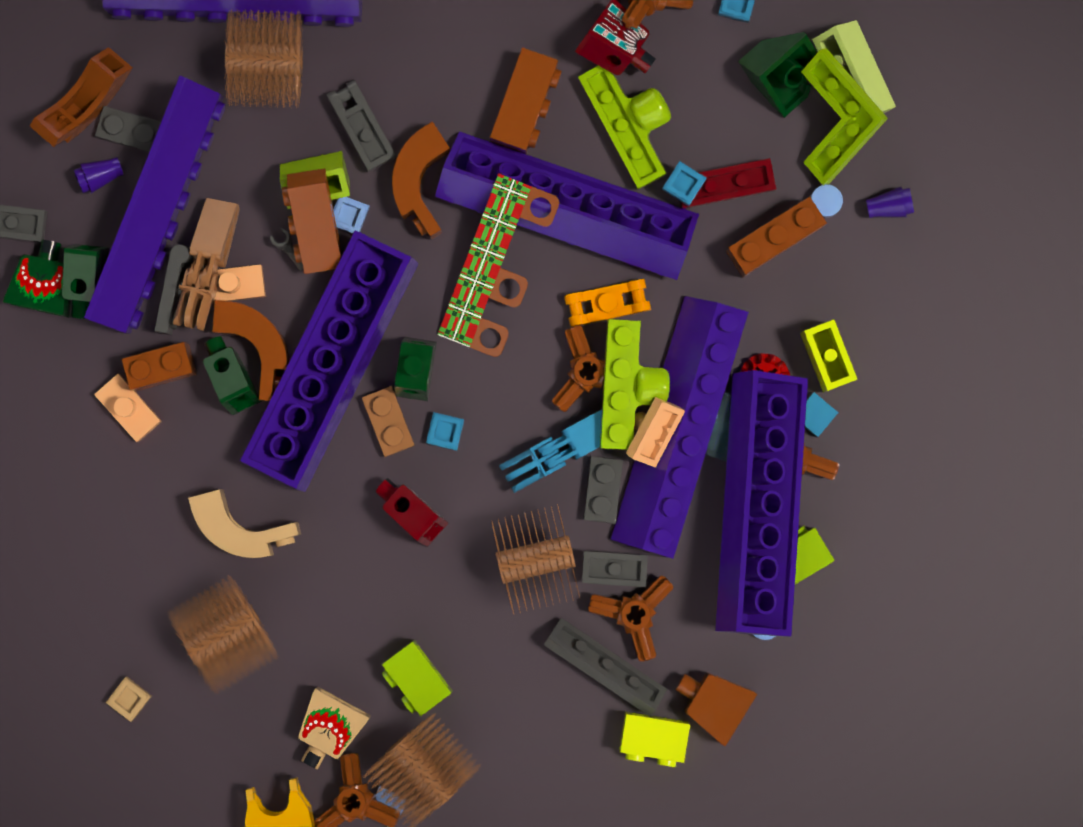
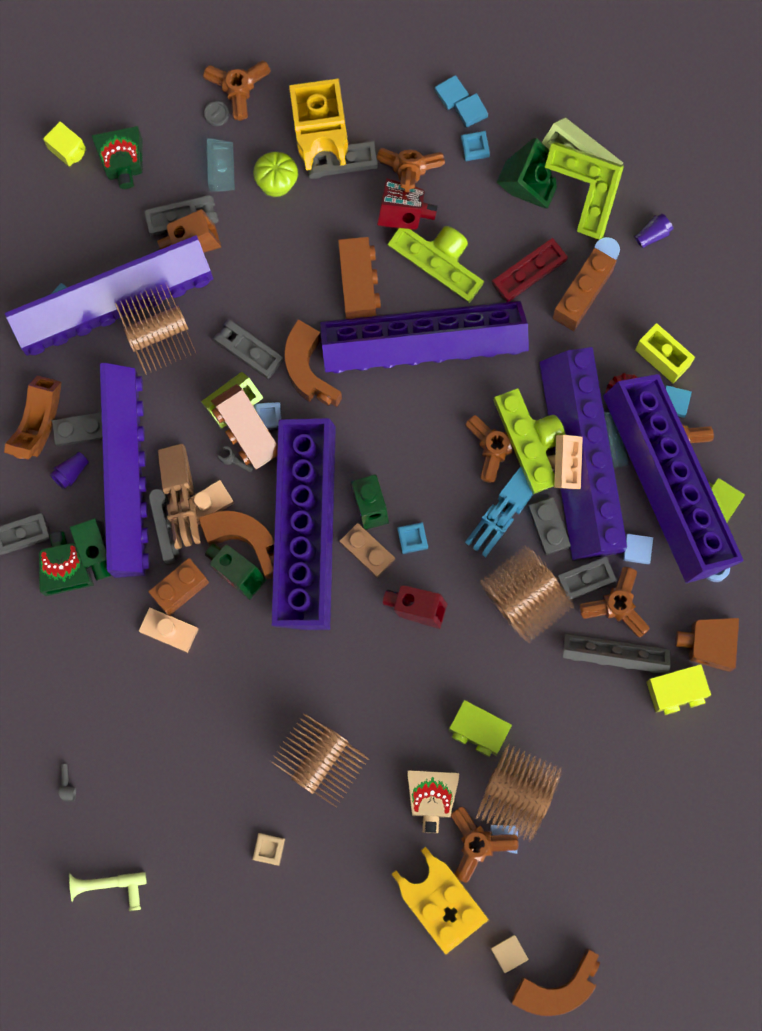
camera: 20 degrees left, 10 degrees down
(218, 525) = (293, 688): tan arch -> none
(482, 270) = (383, 404): piece -> none
(607, 303) = (485, 391): light orange plate -> none
(684, 183) = (500, 281): dark azure tile -> none
(689, 561) = (638, 549): none -> light blue tile

